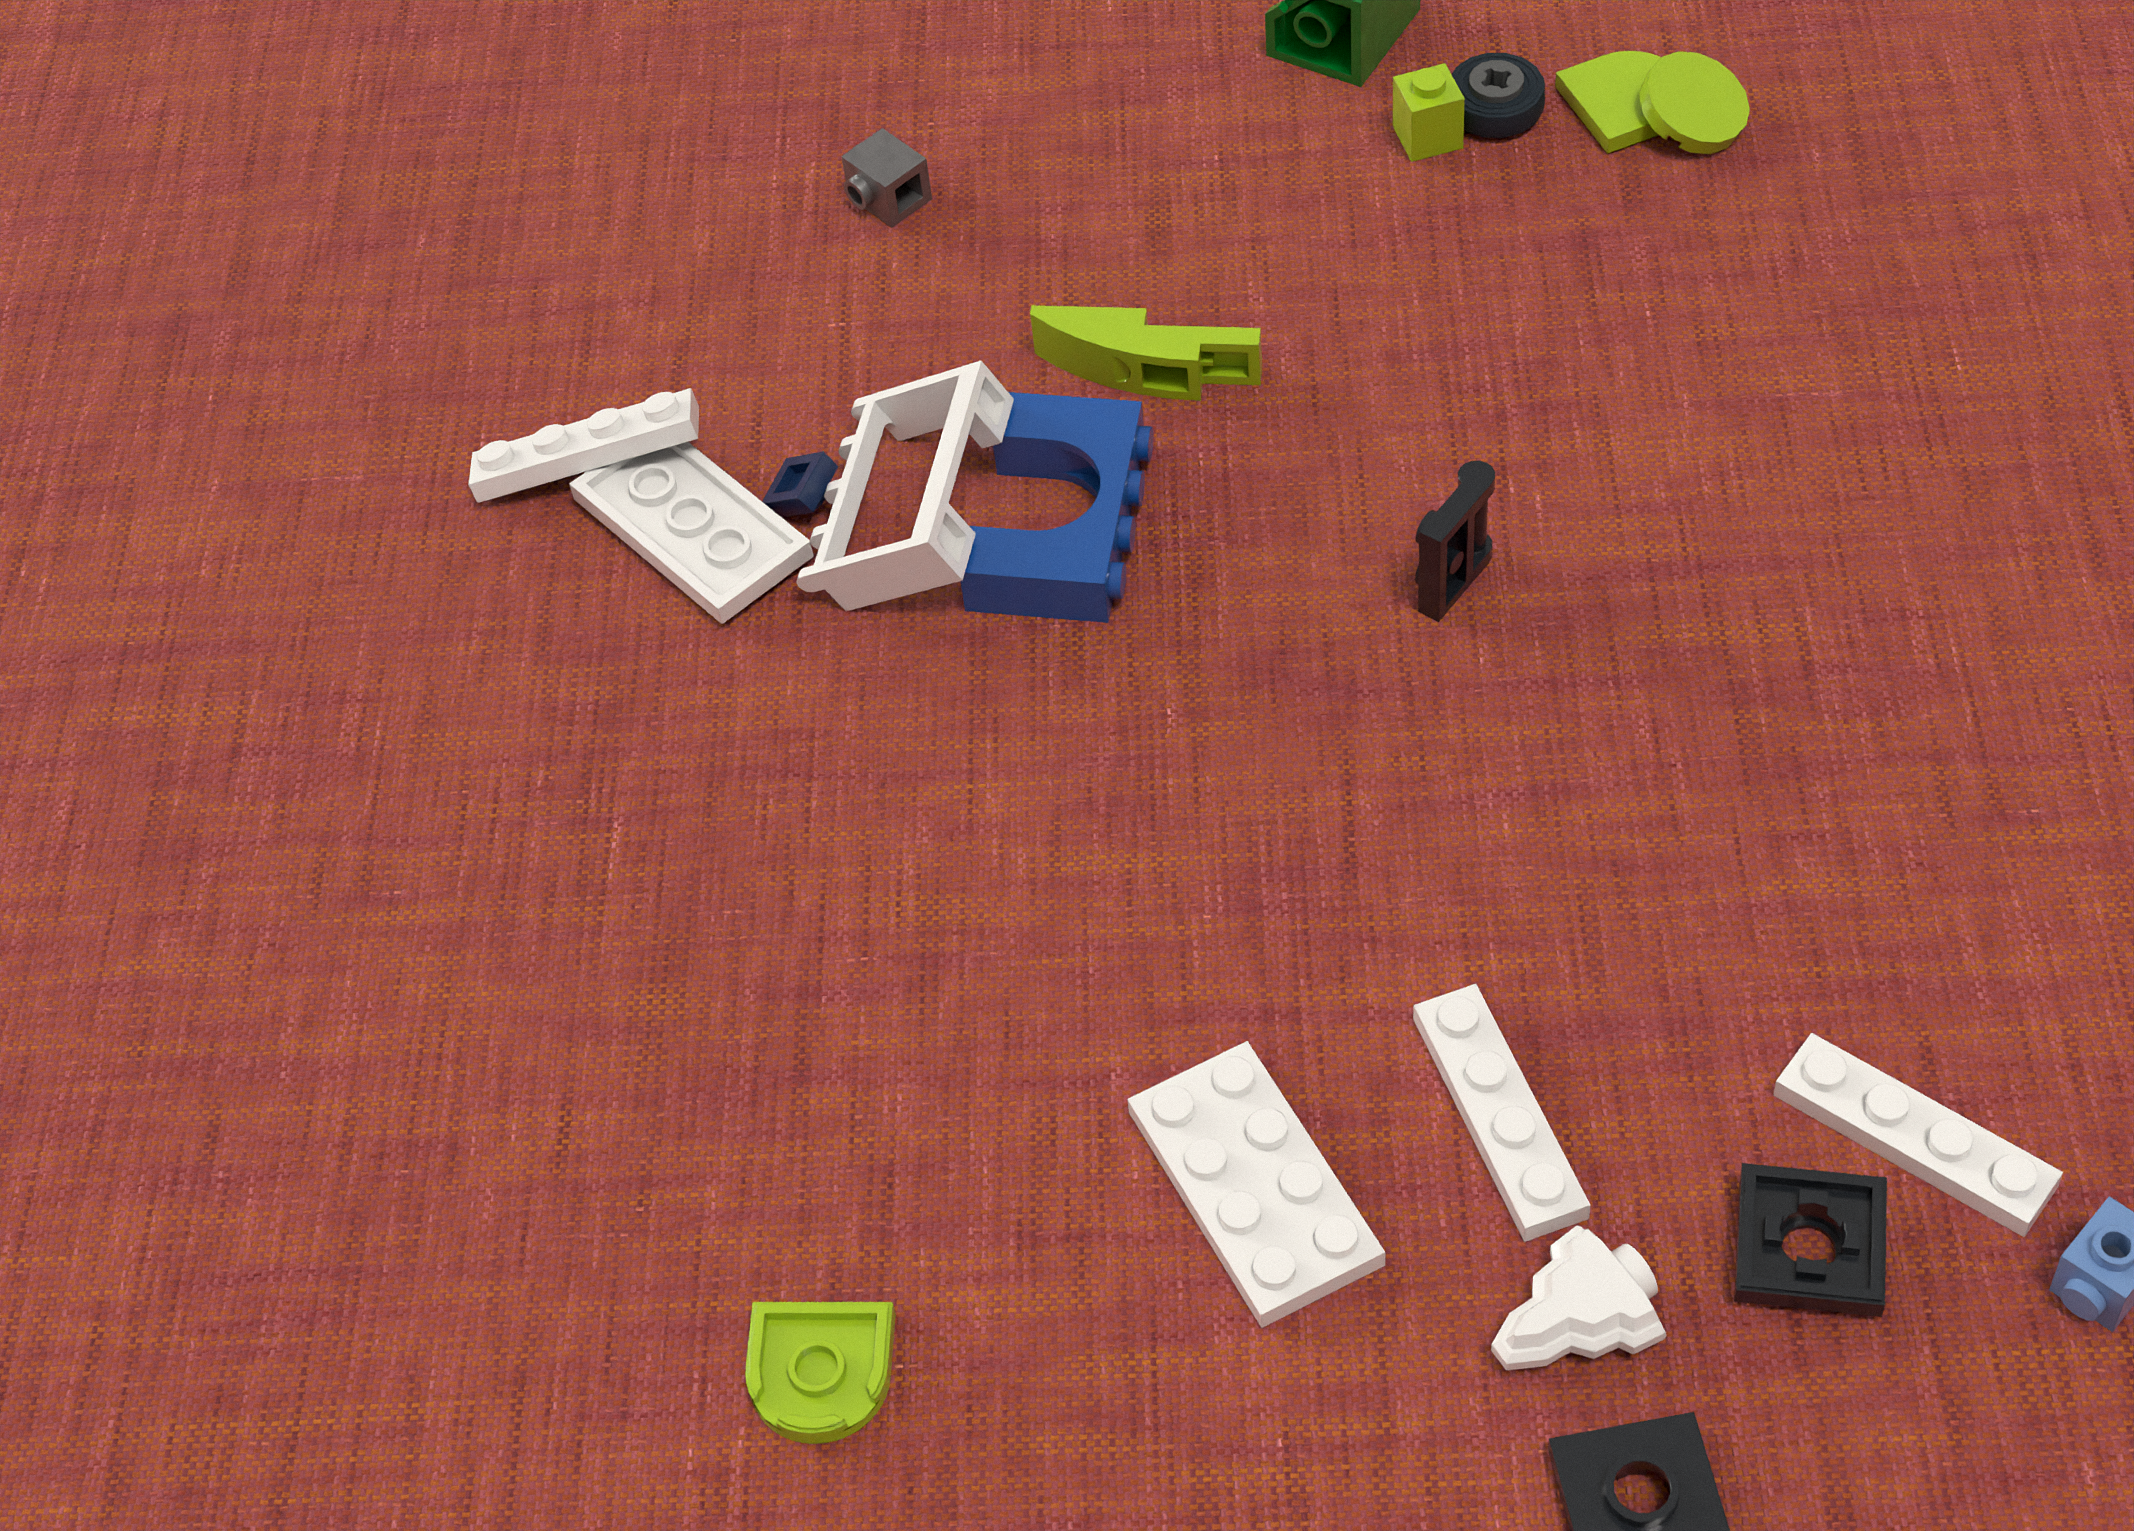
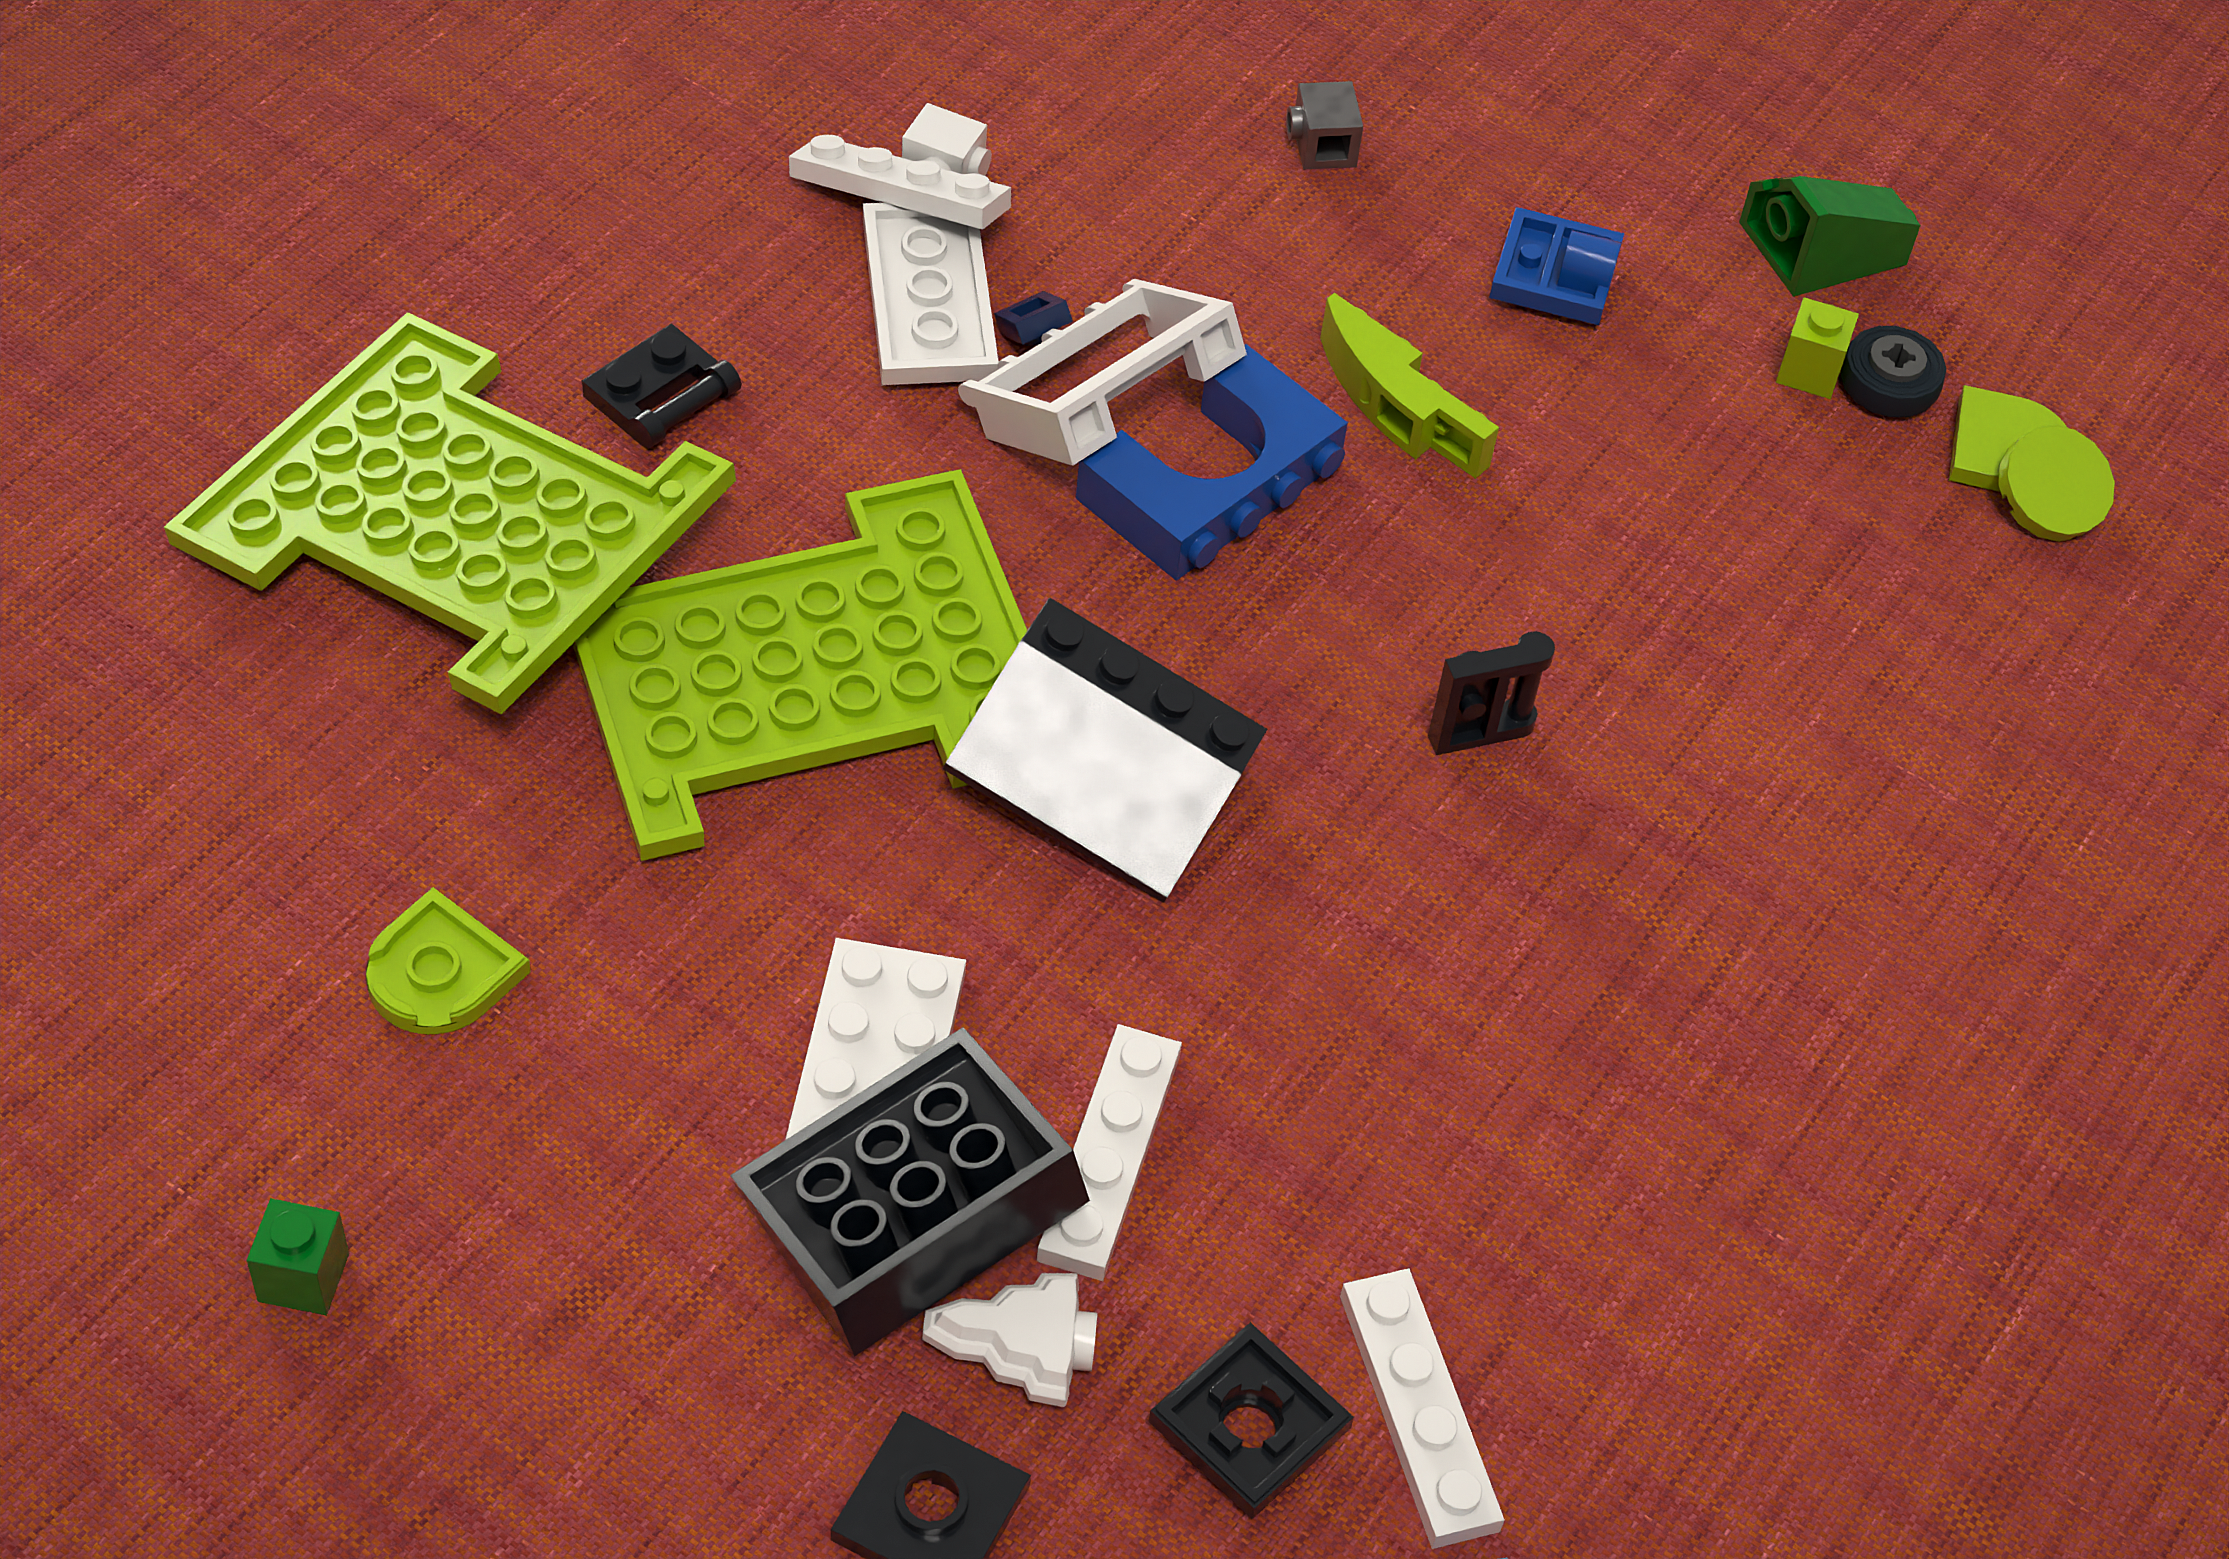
camera: 25 degrees right, 0 degrees up
(457, 973) = (449, 506): none -> lime piece
(518, 746) = (652, 374): none -> black plate
(593, 385) = (947, 140): none -> white brick
(882, 891) = (801, 656): none -> lime piece
(1171, 174) = (1556, 266): none -> blue plate
(1205, 790) = (1105, 749): none -> slope
(1395, 1253) = (912, 1189): none -> black slope

